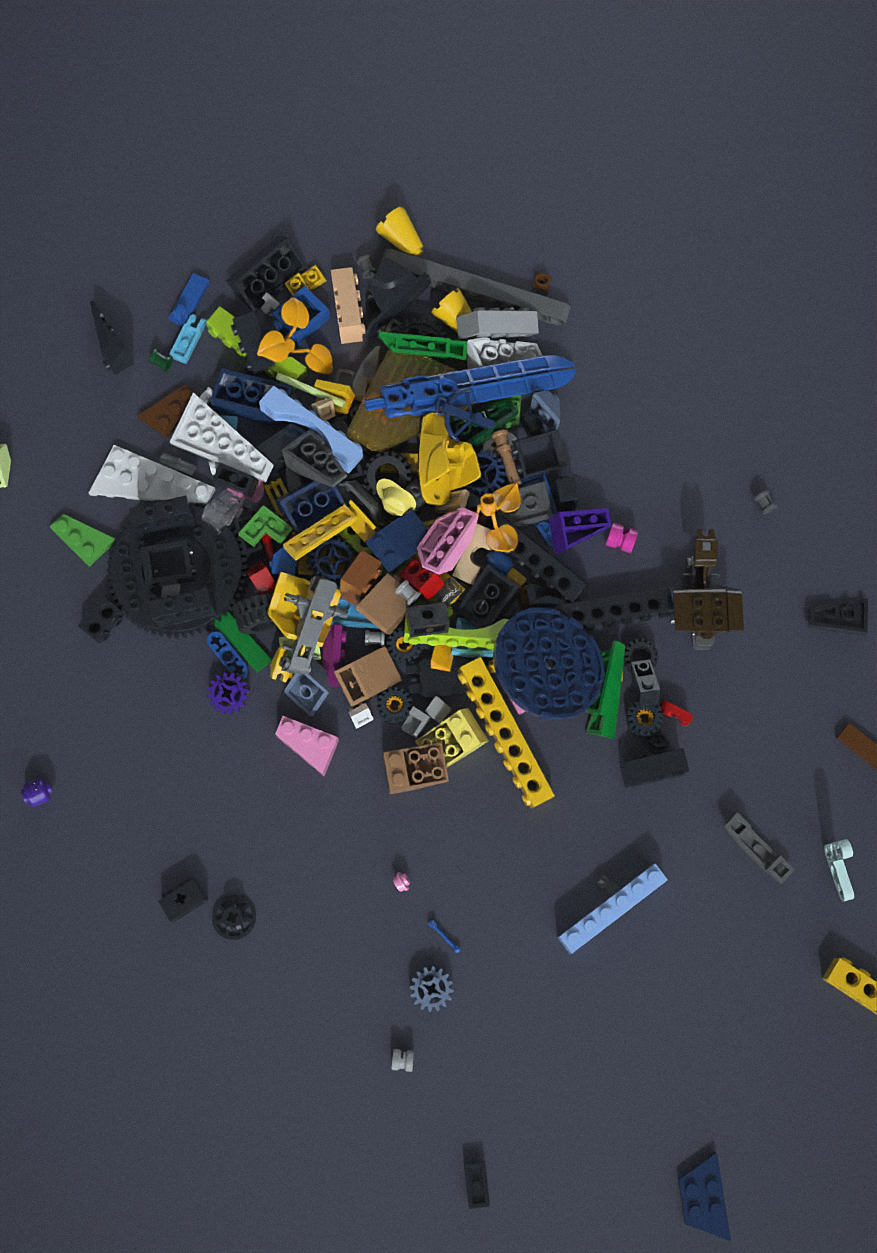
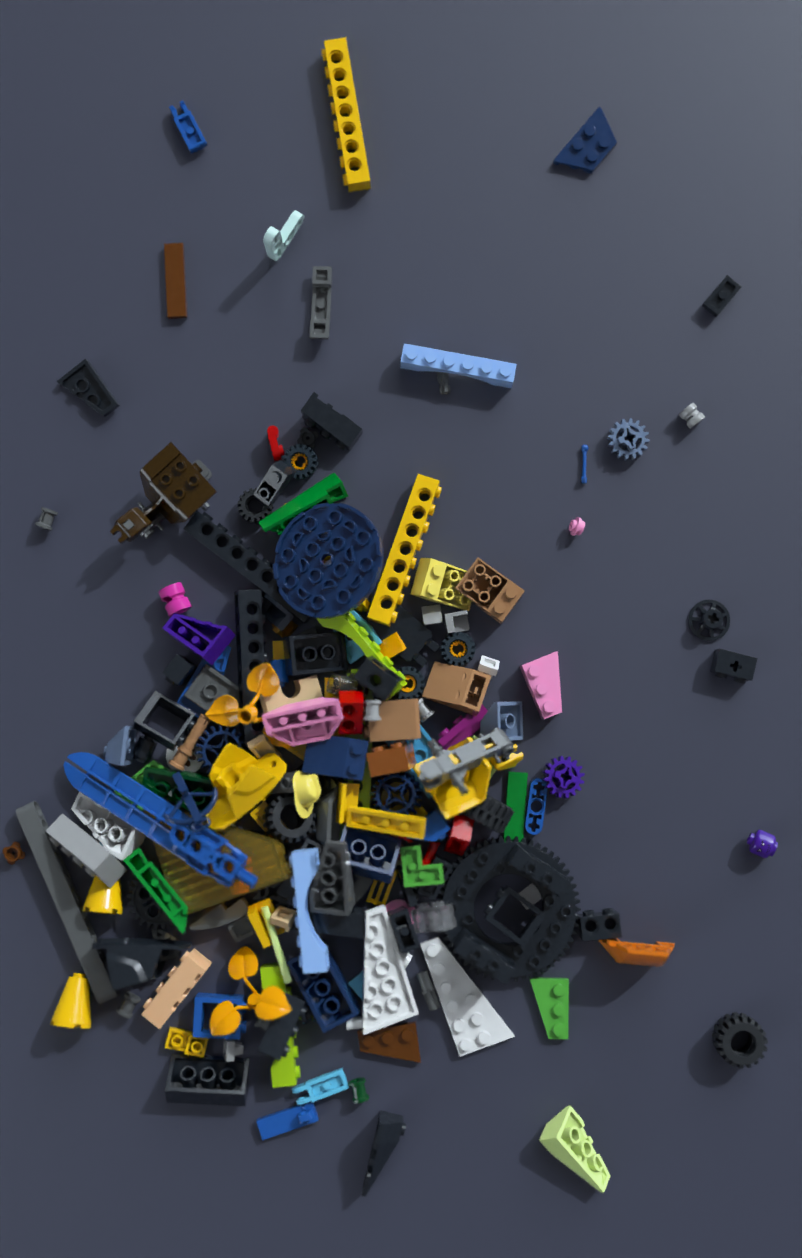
camera: 130 degrees left, 10 degrees up
(52, 628) = (638, 953): none -> orange wedge

